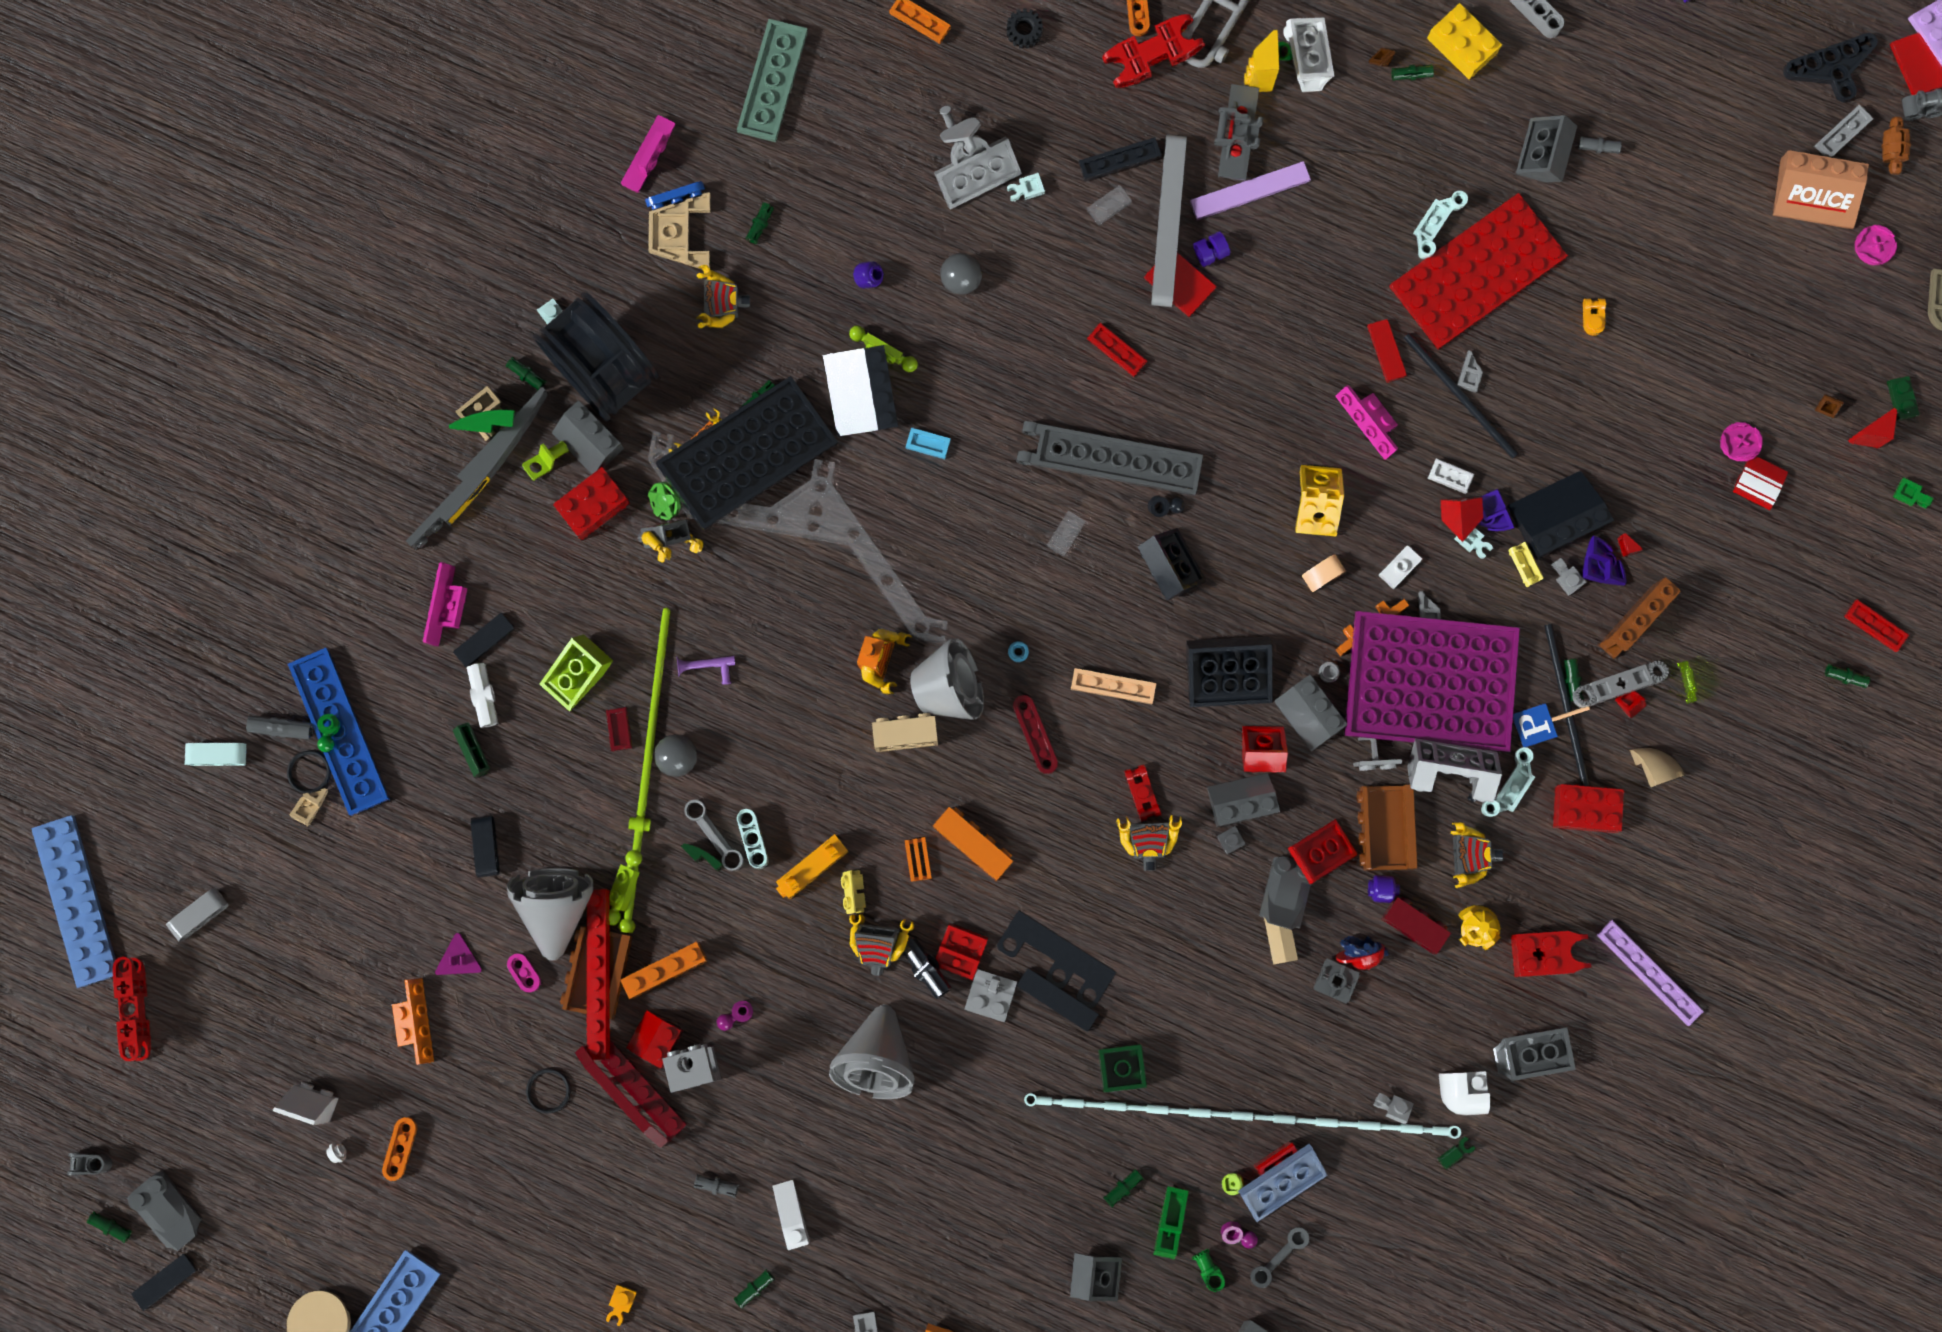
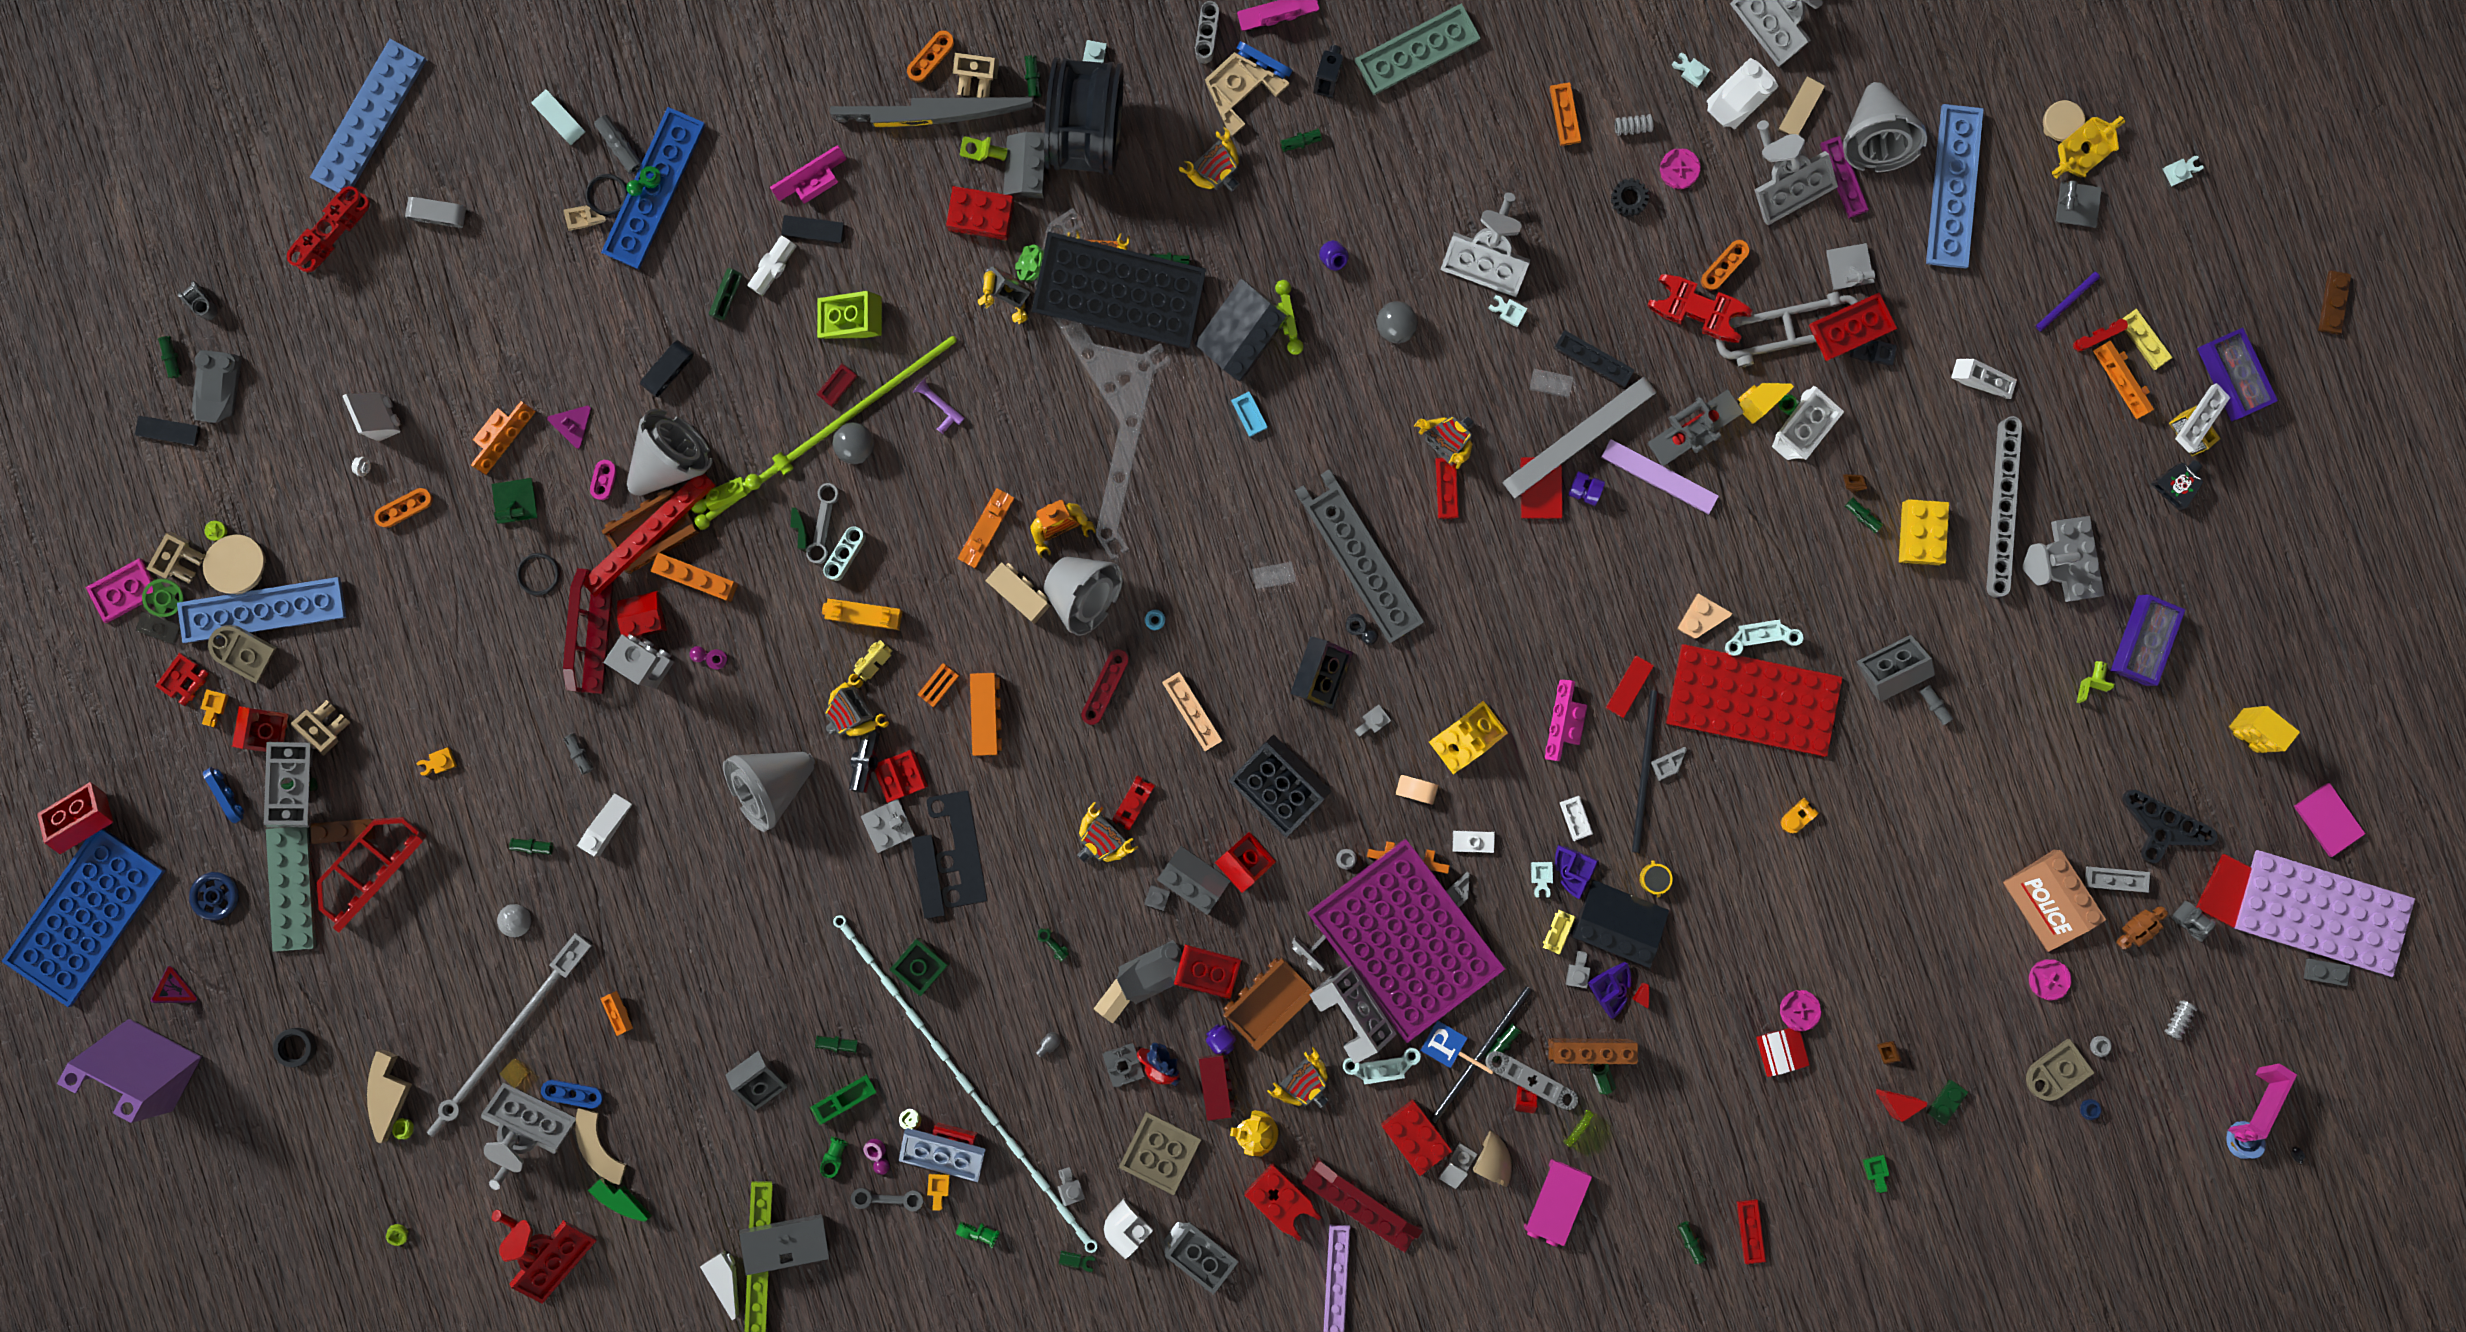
camera: 50 degrees right, 5 degrees up
(277, 1315) = (215, 530): none -> lime tile
(434, 427) = (933, 48): none -> orange plate
(475, 1057) = (514, 501): none -> dark green plate
(484, 421) = (967, 81): green slope -> none
(610, 210) = (1207, 22): none -> light grey beam
(729, 157) = (1328, 71): none -> black torso
(832, 715) = (986, 528): none -> orange hinge
(1082, 313) = (1448, 437): none -> torso
(1183, 951) = (1044, 935): none -> dark green bar
(1242, 557) = (1373, 719): none -> light grey plate
(1269, 1023) = (1048, 1044): none -> flat silver cylinder
(1305, 1209) = (938, 1187): none -> light orange plate
(1310, 713) = (1302, 872): dark grey slope -> none
(1371, 1207) = (982, 1233): none -> green connector
(1382, 253) = (1702, 617): none -> light nougat wing
(1429, 1014) = (1160, 1153): none -> dark tan plate
(1462, 515) = (1553, 852): red slope -> none
(1548, 458) = (1656, 878): none -> pearl dark grey piece
(1603, 896) = (1361, 1206): none -> dark red plate
(1636, 798) = (1457, 1166): none -> light grey slope
(1665, 629) = (1603, 1078): none -> dark green piece
(1683, 19) = (2097, 681): none -> lime bracket
(1732, 747) = (1558, 1203): none -> dark pink panel

